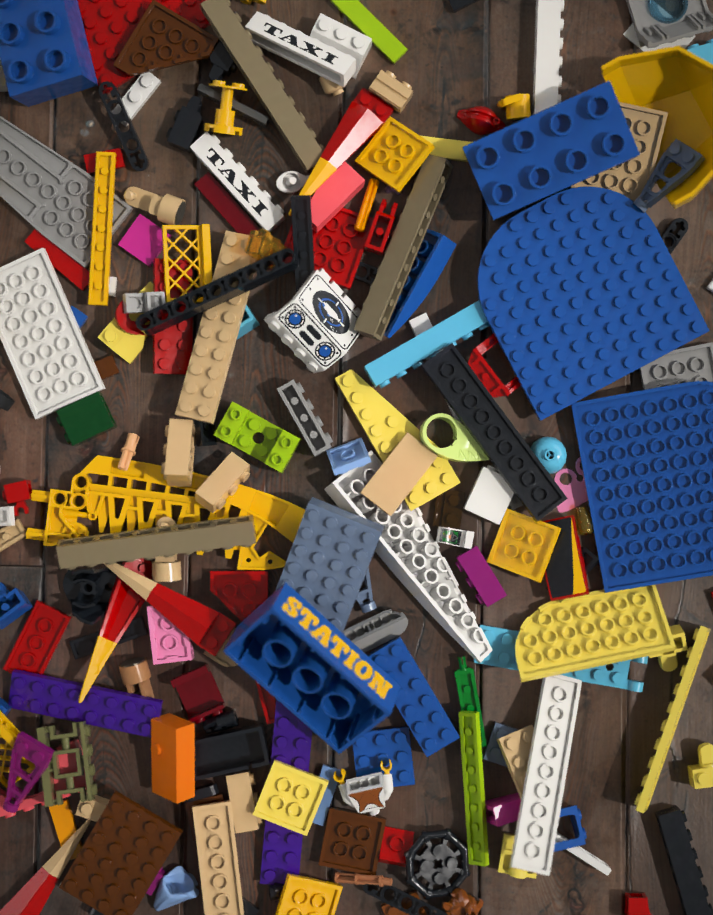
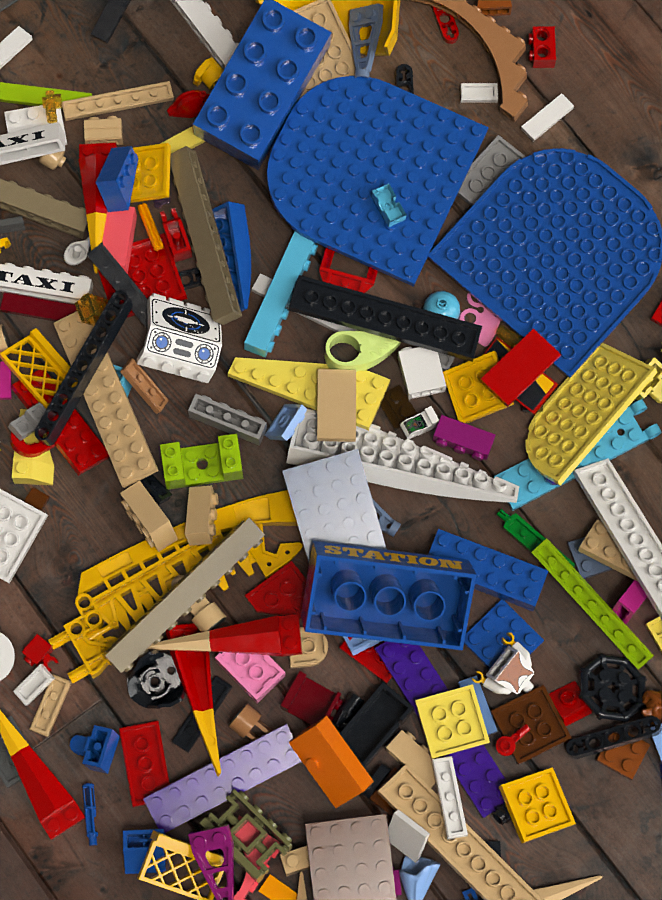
camera: 40 degrees left, 15 degrees down
(86, 419) = (50, 551): dark green brick -> none
(128, 451) = (104, 550): light nougat axle -> none
(188, 856) = (407, 835): none -> white tile
(242, 854) = (449, 797): none -> white tile
(258, 340) = (144, 386): none -> medium nougat tile
(319, 845) = (506, 745): none -> red plate
(362, 36) = (51, 103): none -> clear yellow plate
(362, 879) = (563, 747): nougat piece -> none
(368, 145) = (118, 178): none -> blue wedge
(377, 629) = (419, 534): light grey brick -> none
(423, 72) = (117, 101): none -> tan tile
(569, 339) = (387, 206): none -> medium azure piece
(569, 559) = (520, 367): none -> red tile

